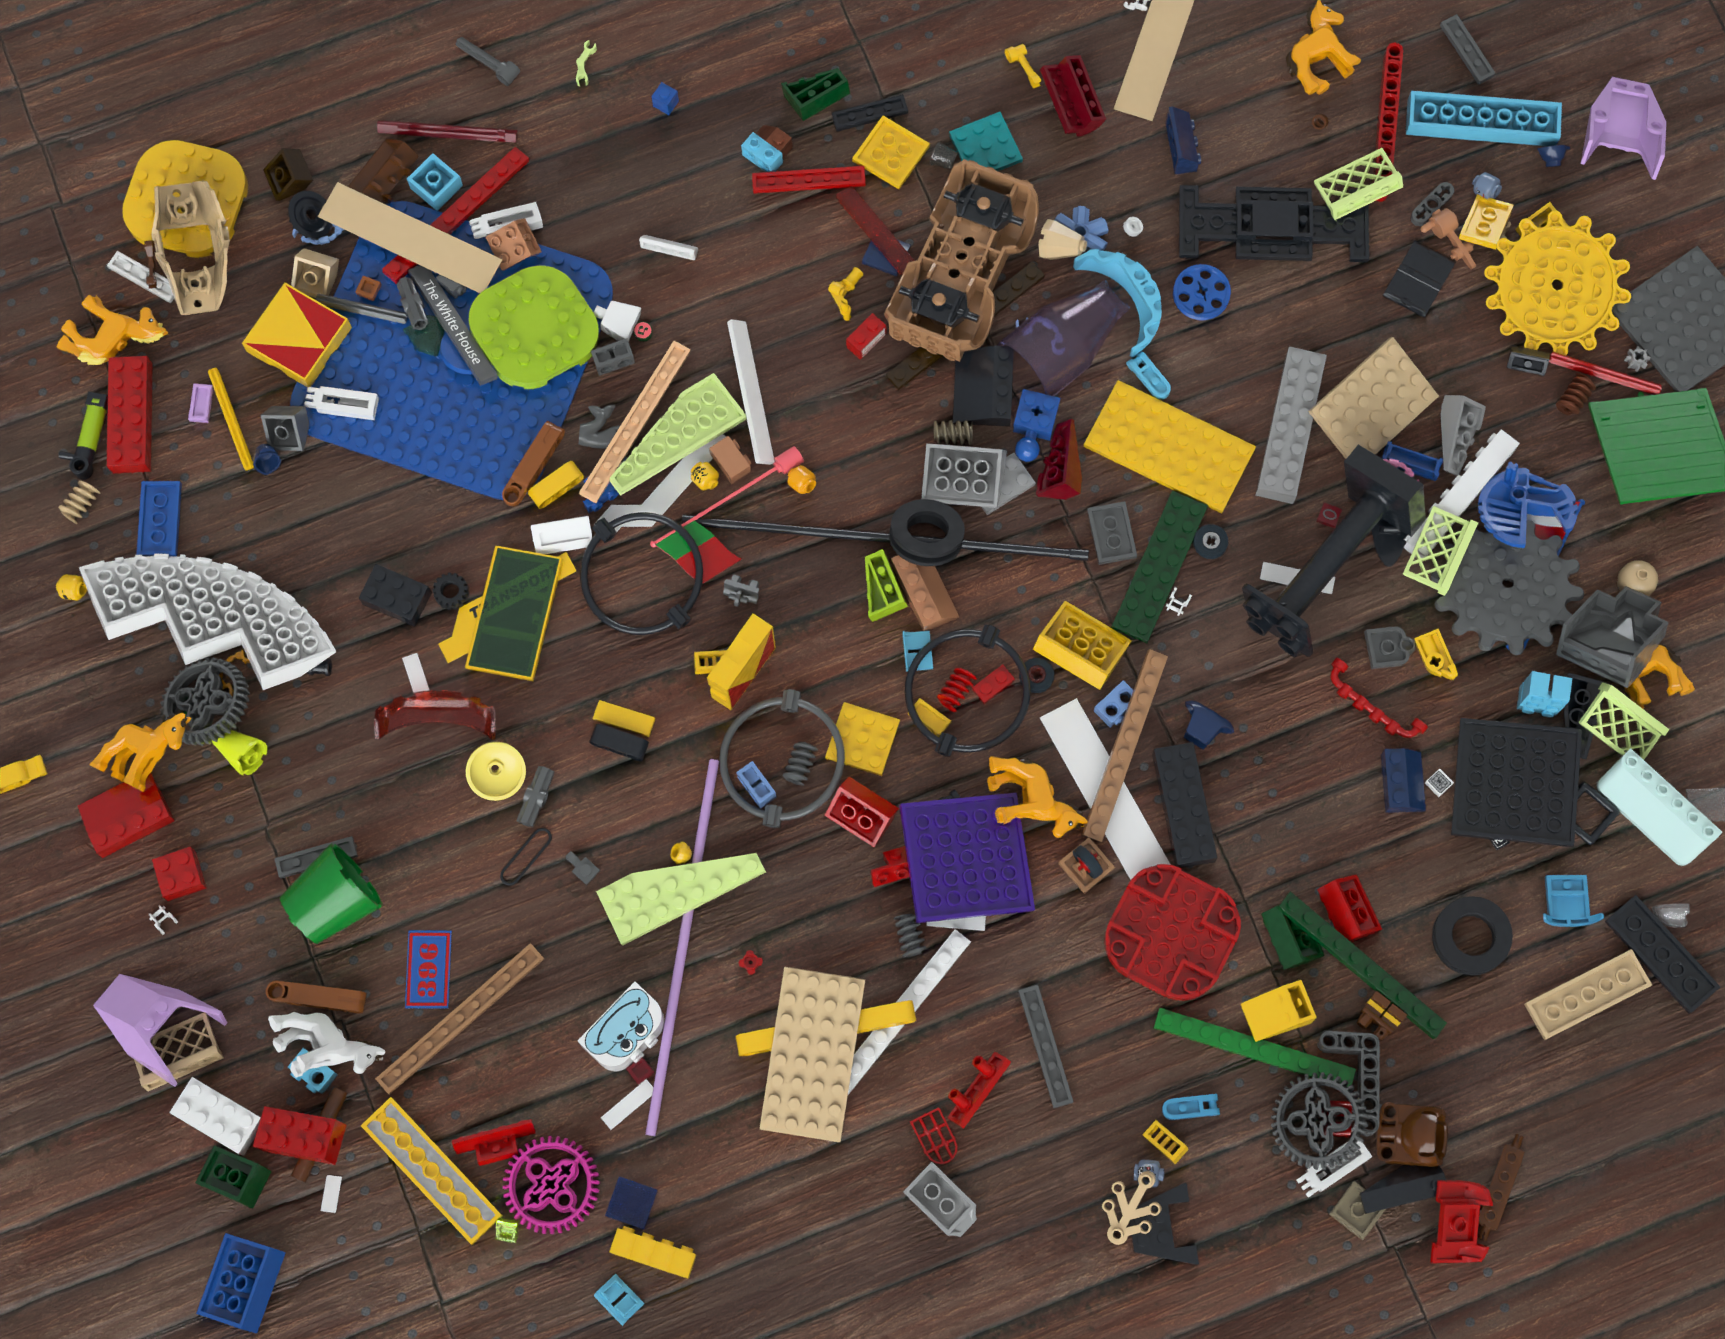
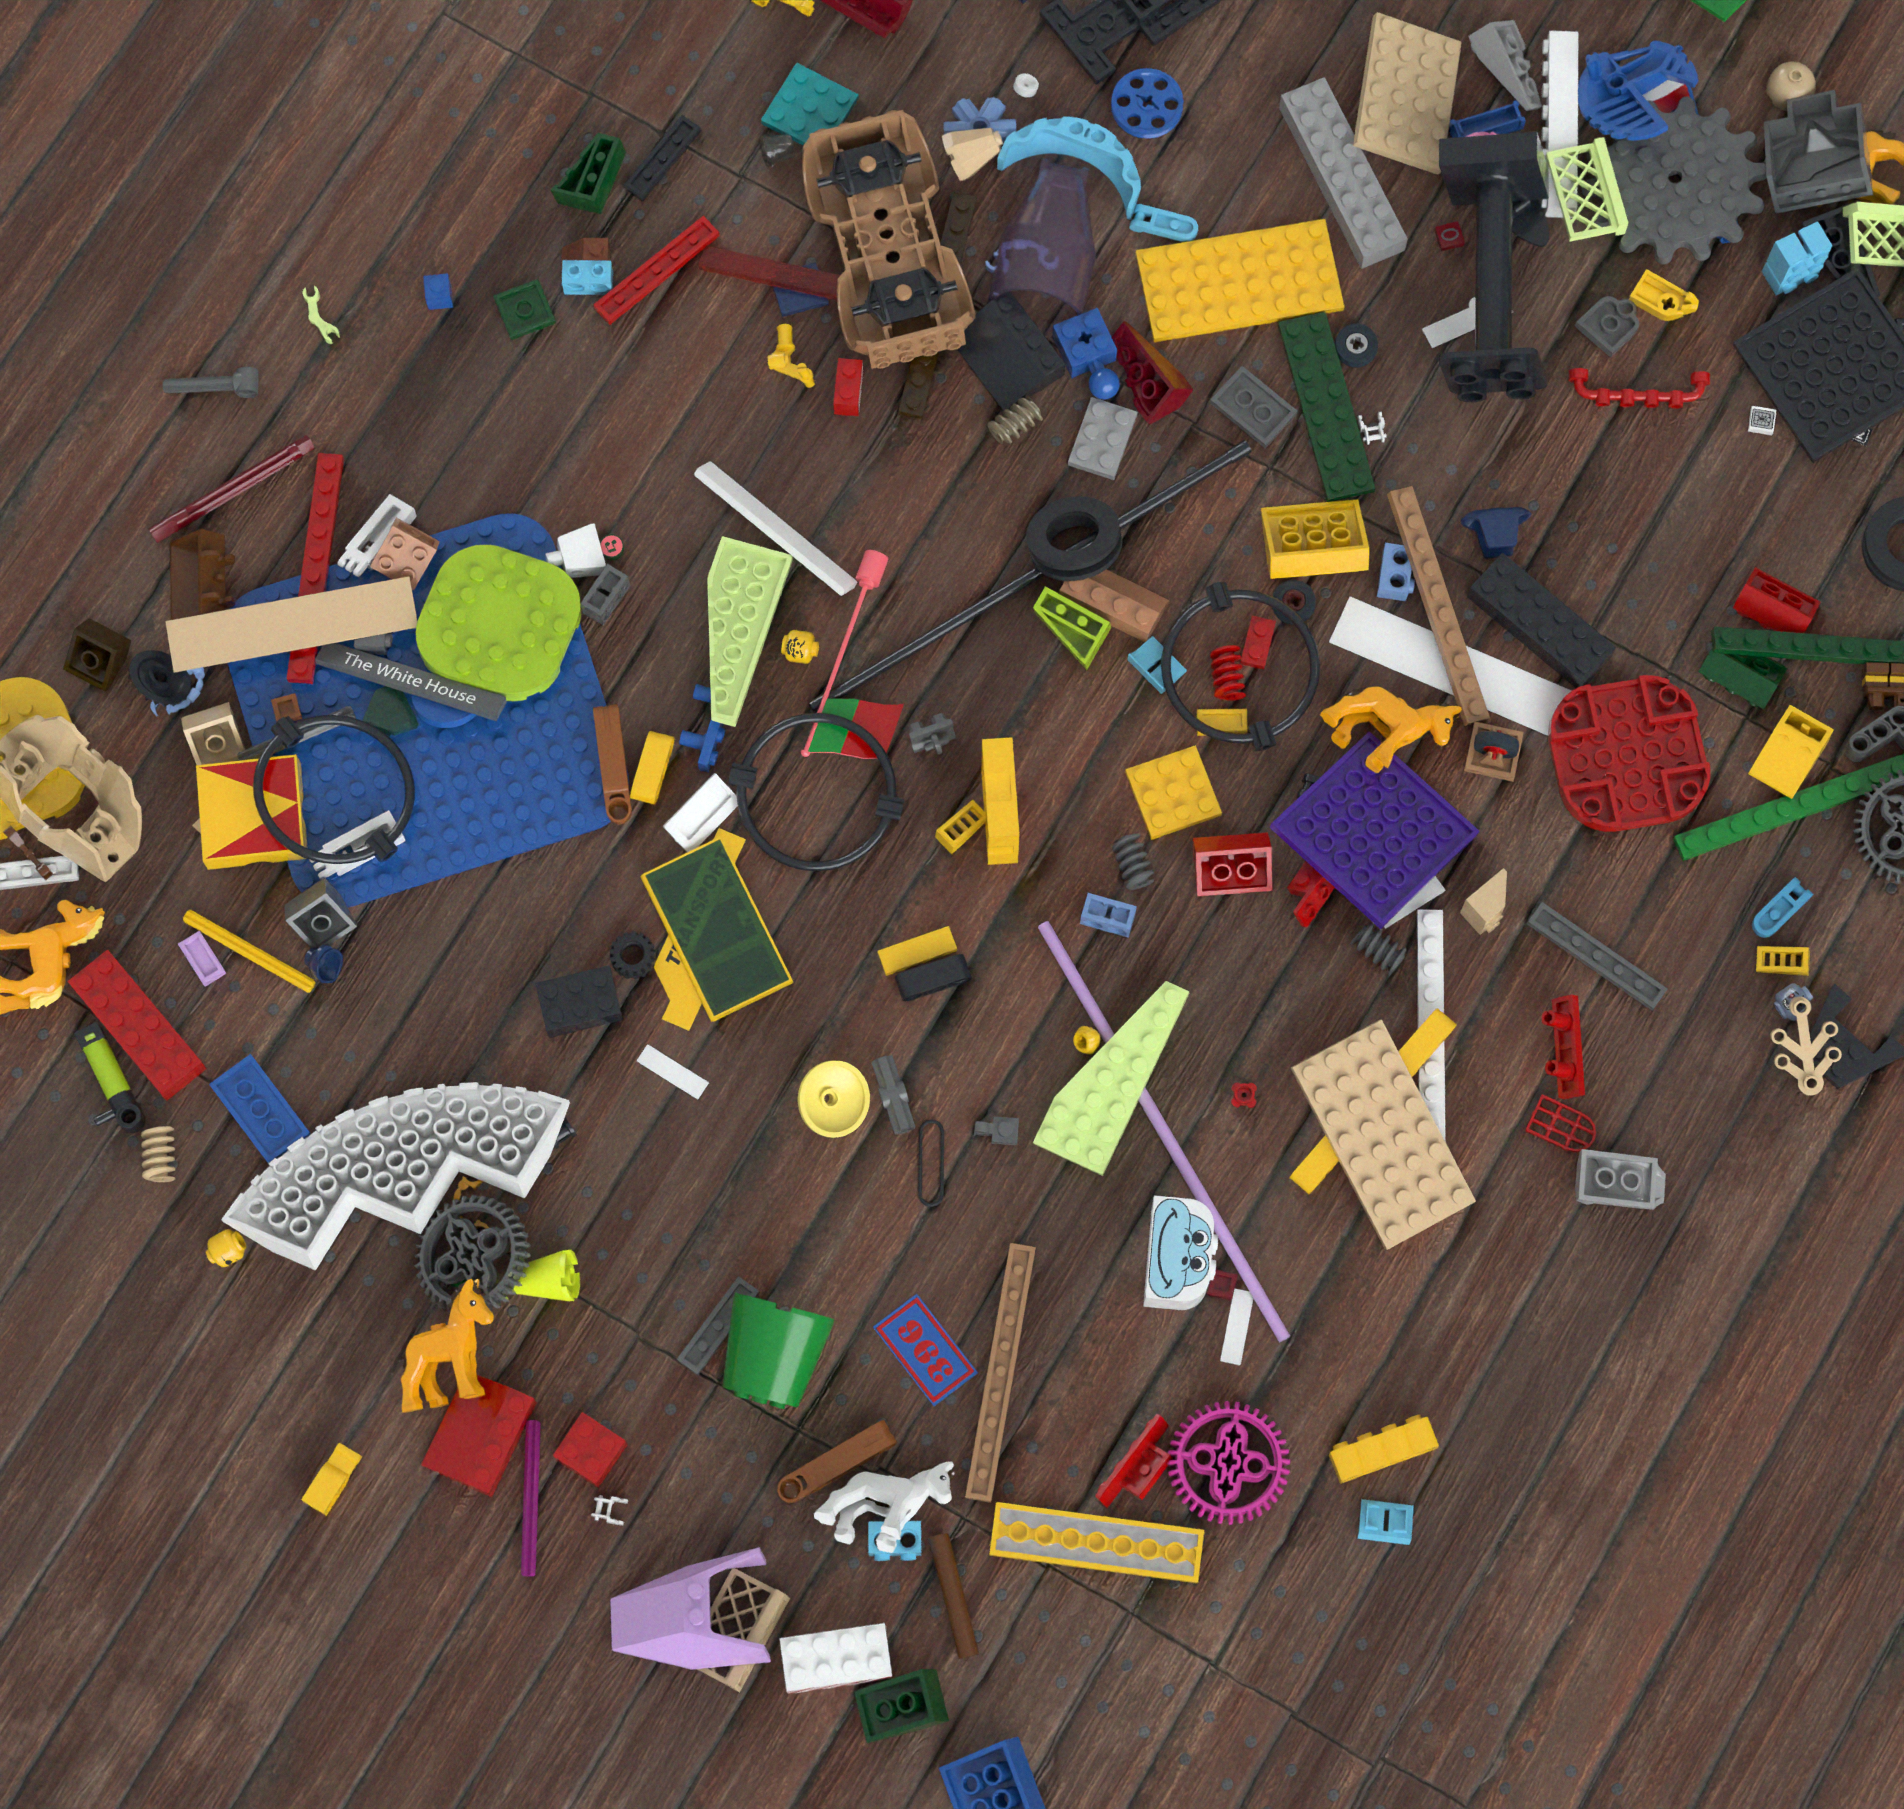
camera: 40 degrees left, 0 degrees up
(122, 876) = (530, 1498): none -> magenta axle
(299, 1135) = (939, 1609): red brick -> none
(331, 1193) = (1013, 1645): white sticker -> none
(352, 303) = (289, 734): none -> black piece
(412, 303) = (349, 690): dark grey piece -> none
(434, 182) = (265, 549): medium azure brick -> none
(435, 708) = (721, 1079): clear red windscreen -> none
(506, 1230) = (1221, 1541): clear neon green plate -> none
(589, 432) = (648, 693): dark grey piece -> none
(631, 1203) = (1321, 1418): clear blue plate -> none
(634, 421) = (684, 643): light nougat plate -> none
(667, 490) = (770, 690): white sticker -> none
(668, 247) = (567, 442): white slope -> none
(710, 147) = (524, 309): none -> dark green tile
(730, 459) = (811, 611): nougat brick -> none
(774, 814) = (1145, 932): dark grey piece -> none
(801, 479) = (901, 578): light orange head -> none
(891, 152) = (718, 182): yellow plate -> none
(963, 475) = (1063, 455): light grey slope -> none
(1000, 958) = (1486, 905): none -> tan slope
(1403, 780) = (1726, 444): dark blue slope -> none

